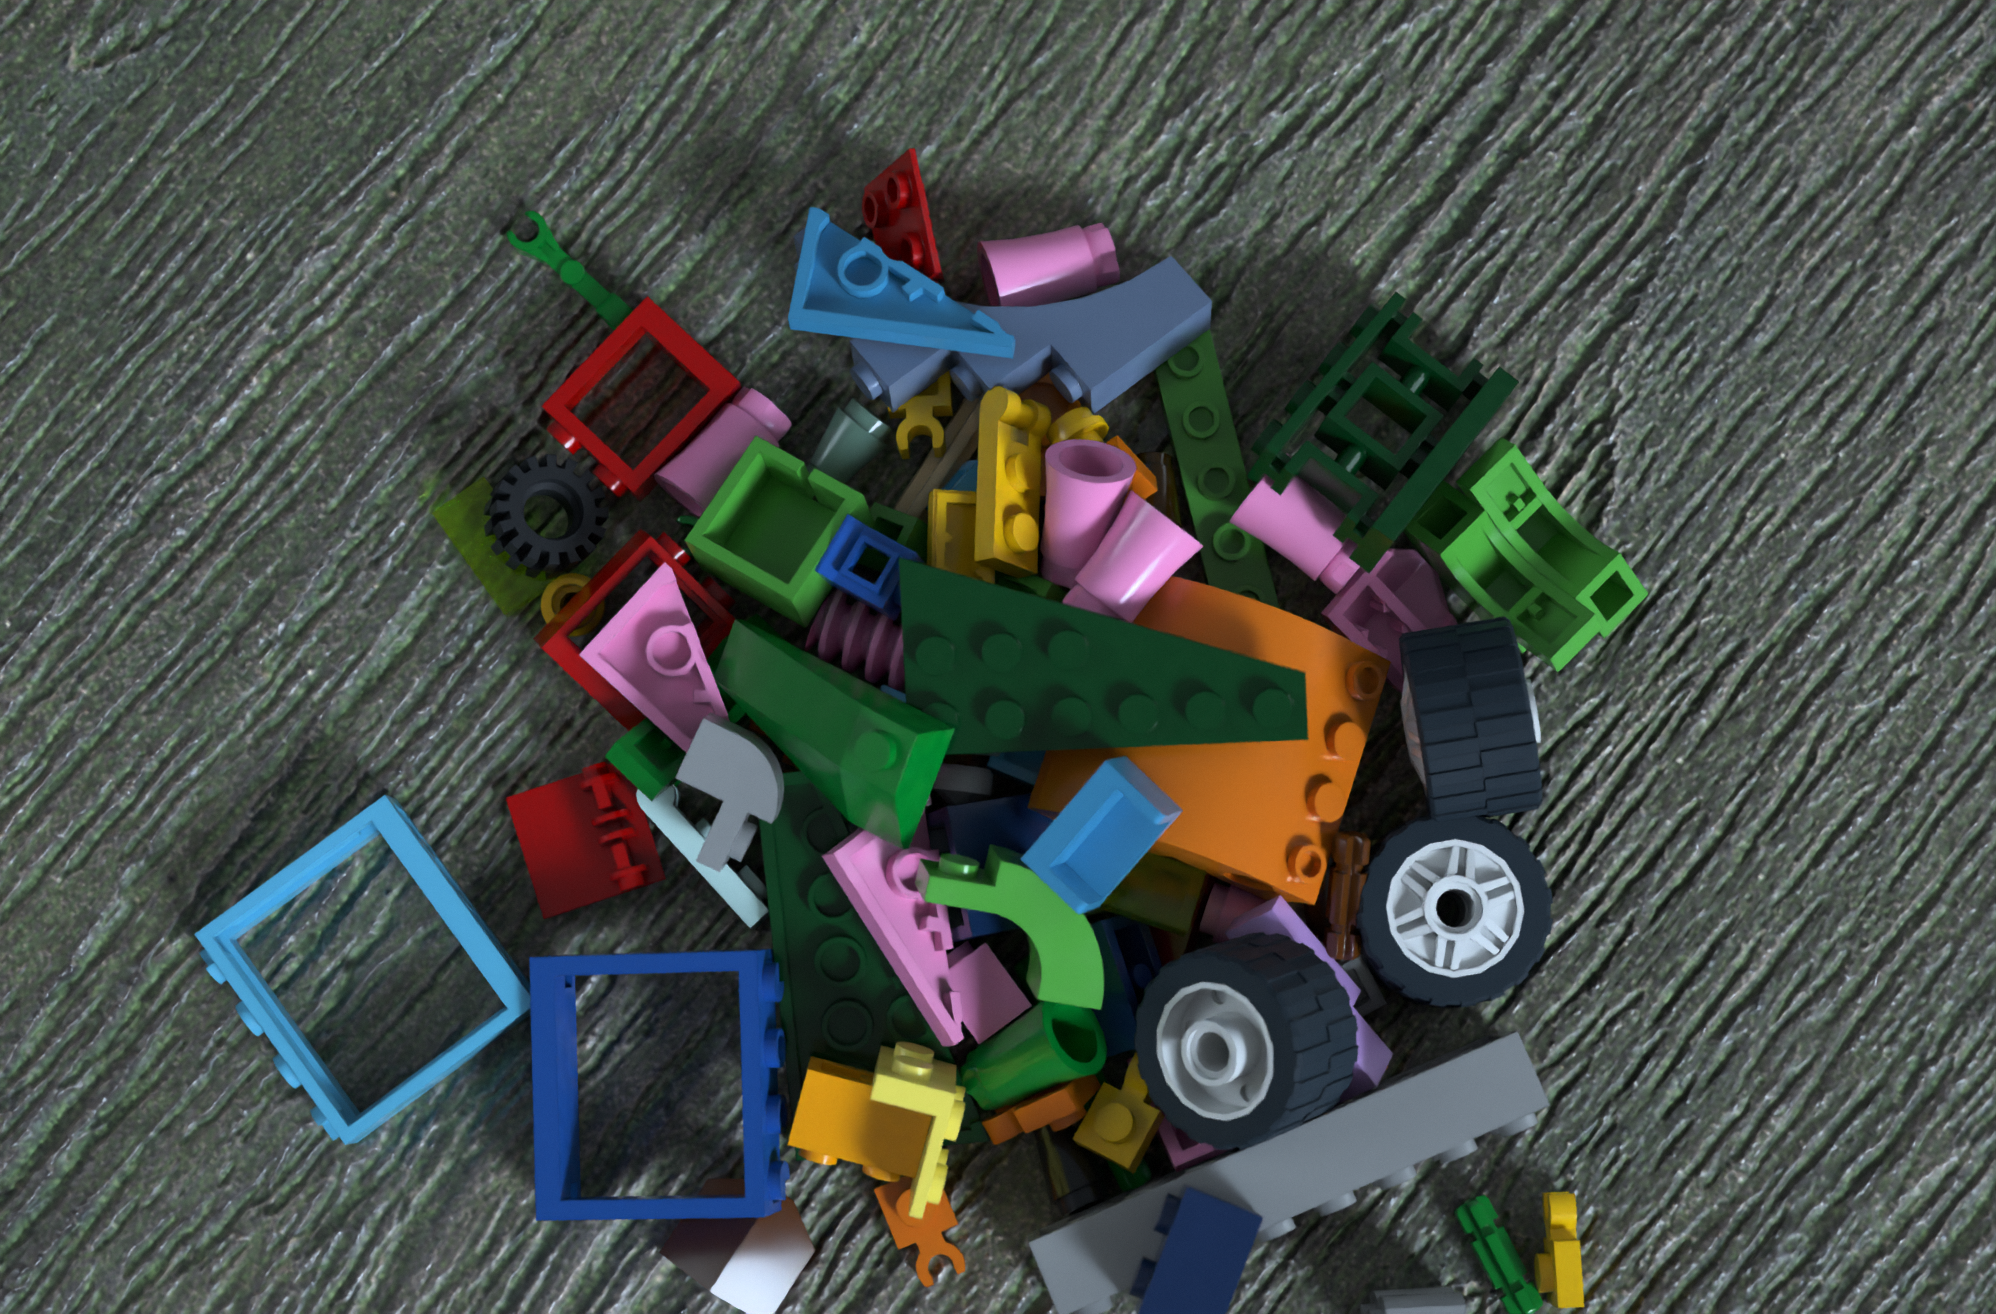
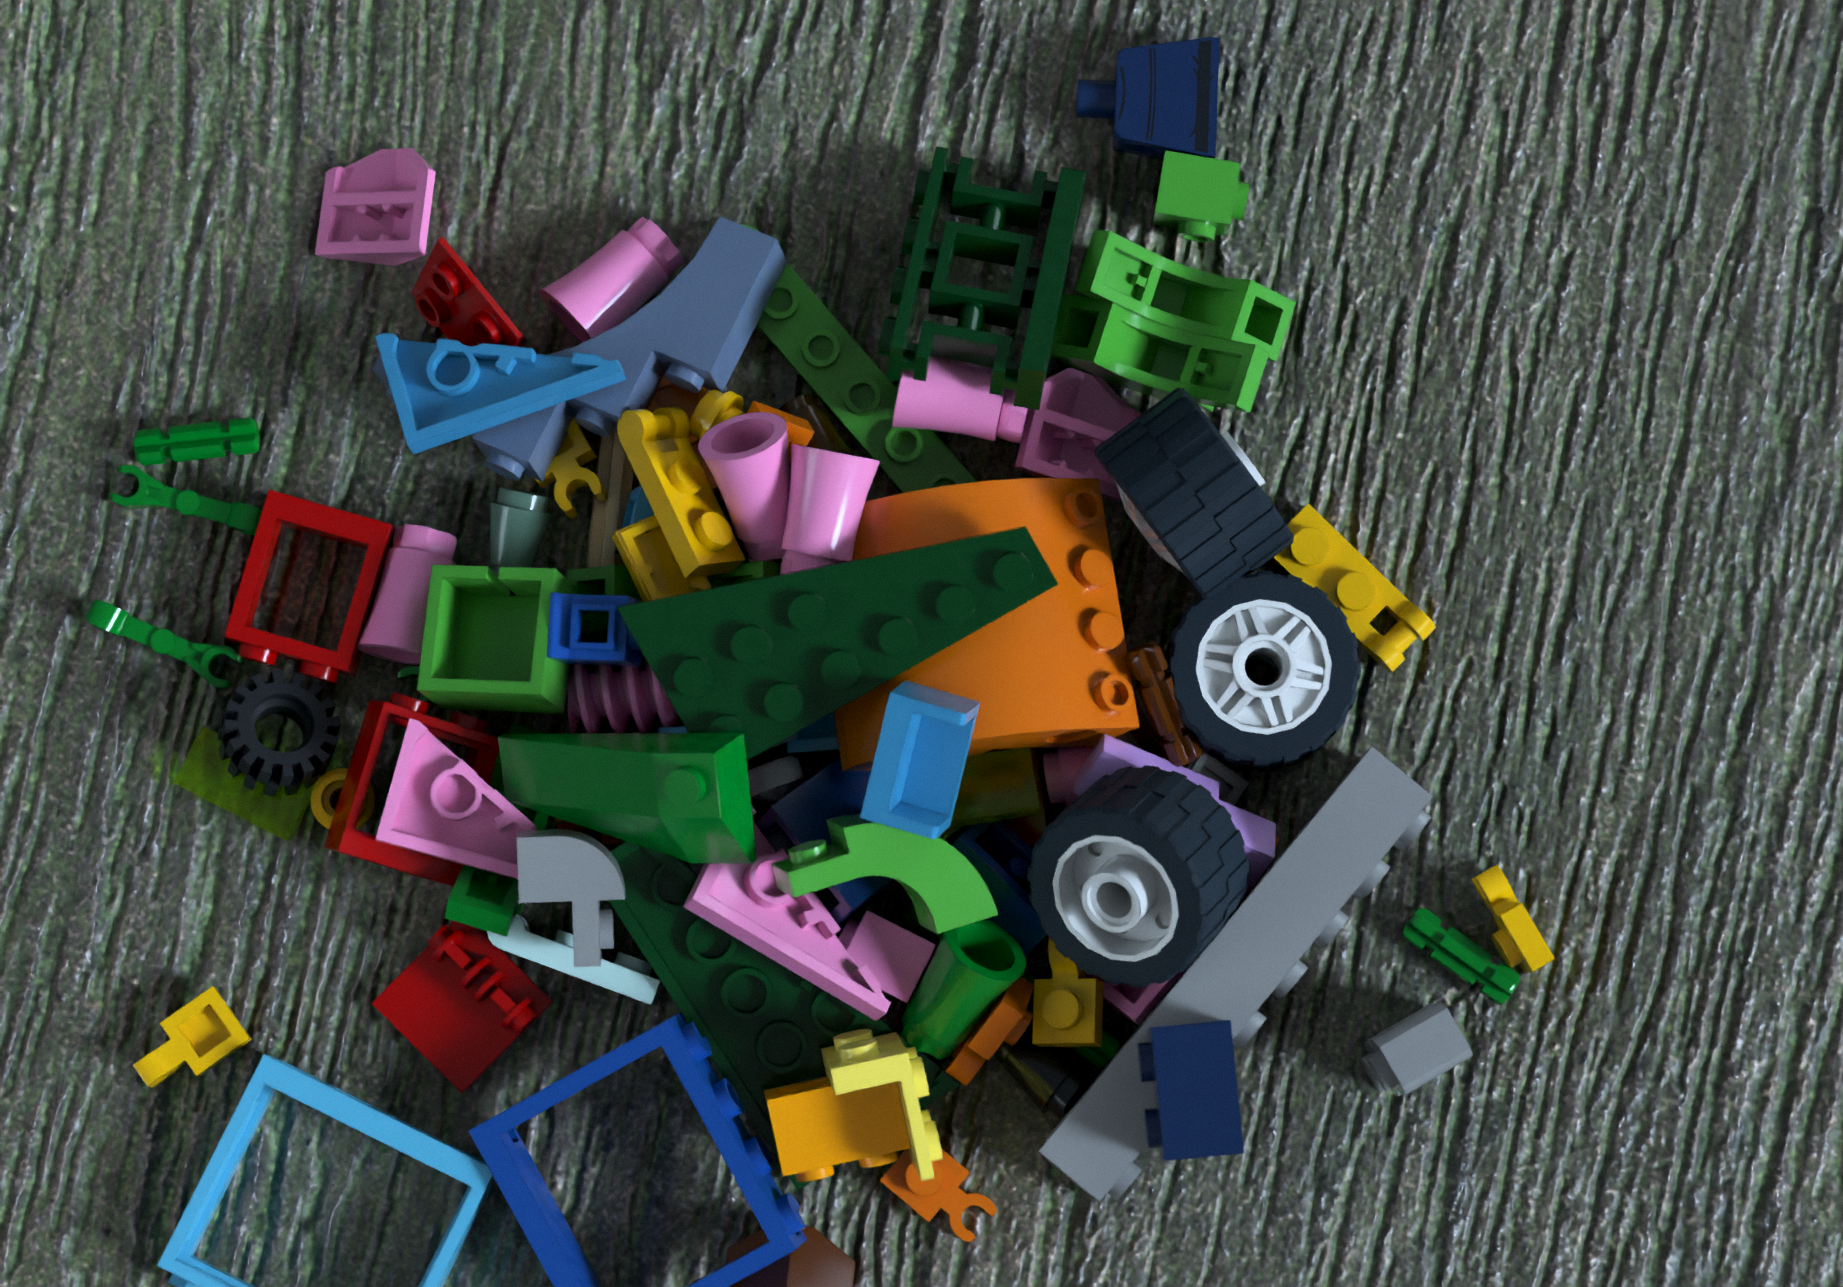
camera: 25 degrees left, 0 degrees up
(340, 749) = (199, 1034): none -> yellow plate
(486, 382) = (164, 642): none -> green piece
(608, 223) = (196, 441): none -> green axle
(870, 98) = (377, 209): none -> bright pink slope
(1572, 873) = (1352, 583): none -> yellow plate
(1609, 455) = (1199, 196): none -> bright green brick
(1617, 353) = (1159, 98): none -> dark blue torso

